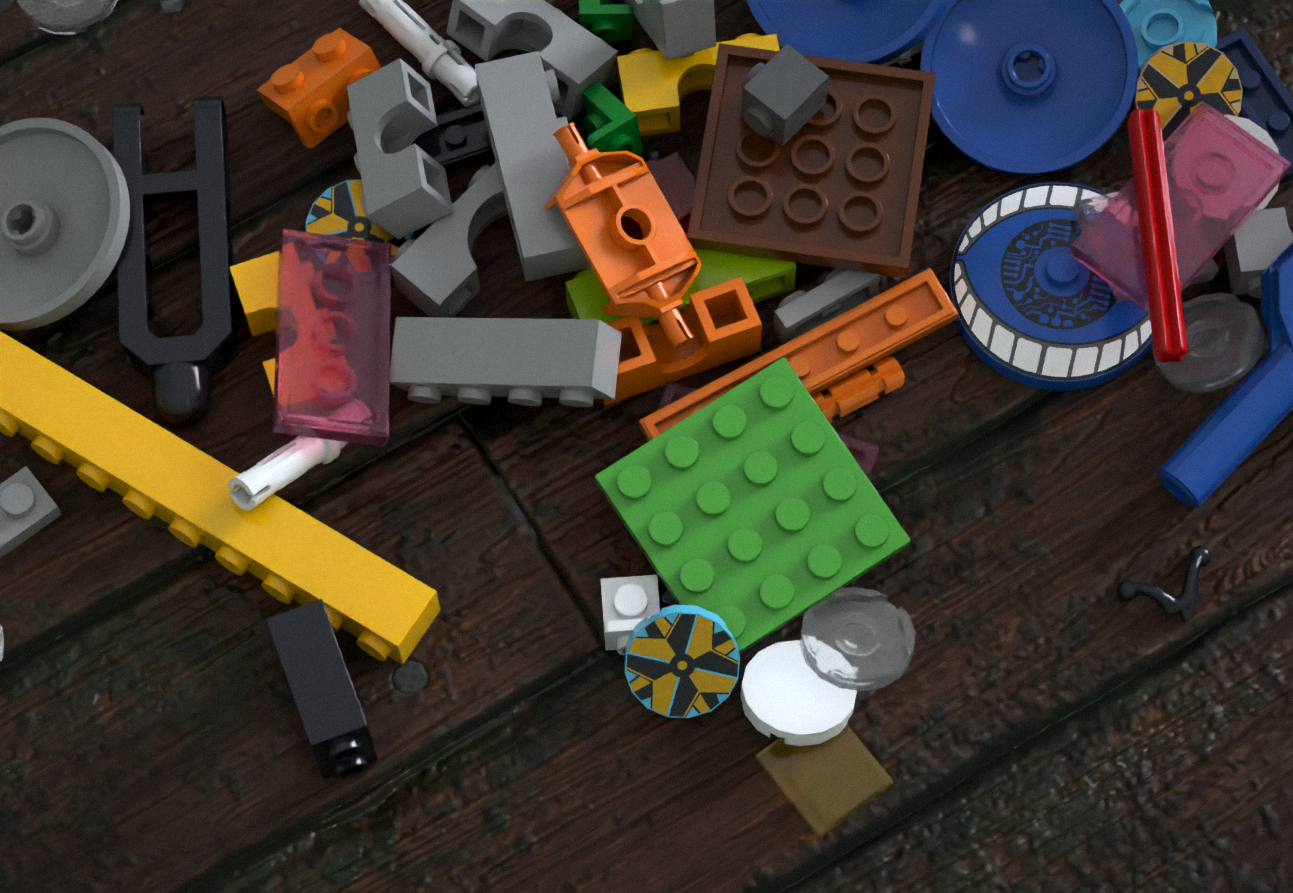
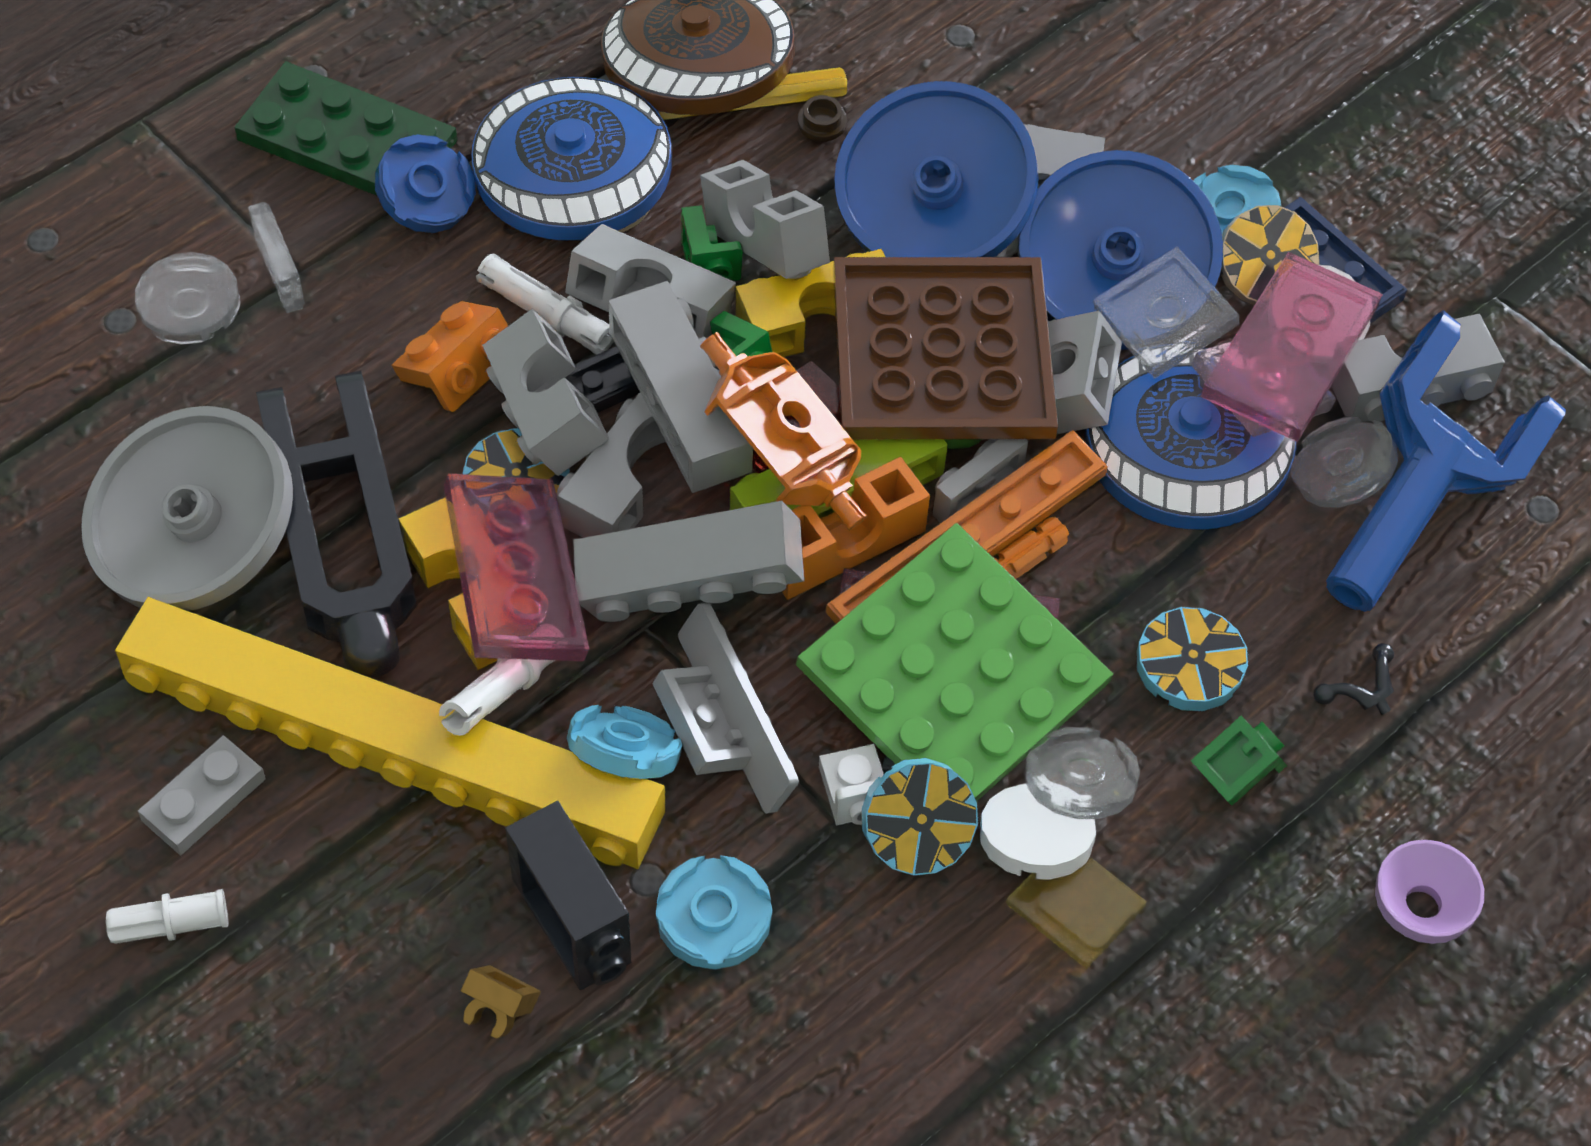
camera: 15 degrees left, 10 degrees down
(243, 773) = (502, 994): none -> pearl gold tile
(408, 537) = (624, 742): none -> medium azure tile
(466, 721) = (714, 912): none -> medium azure tile
(508, 519) = (721, 714): none -> light grey bracket
(782, 94) = (908, 287): dark grey brick -> none
(955, 200) = (1084, 369): none -> light grey brick
(1000, 531) = (1192, 658): none -> tile
(1022, 648) = (1240, 758): none -> green bracket
(1058, 148) = (1166, 312): none -> clear tile
(1157, 236) = (1283, 367): red axle -> none
(1183, 794) = (1442, 874): none -> lavender piece

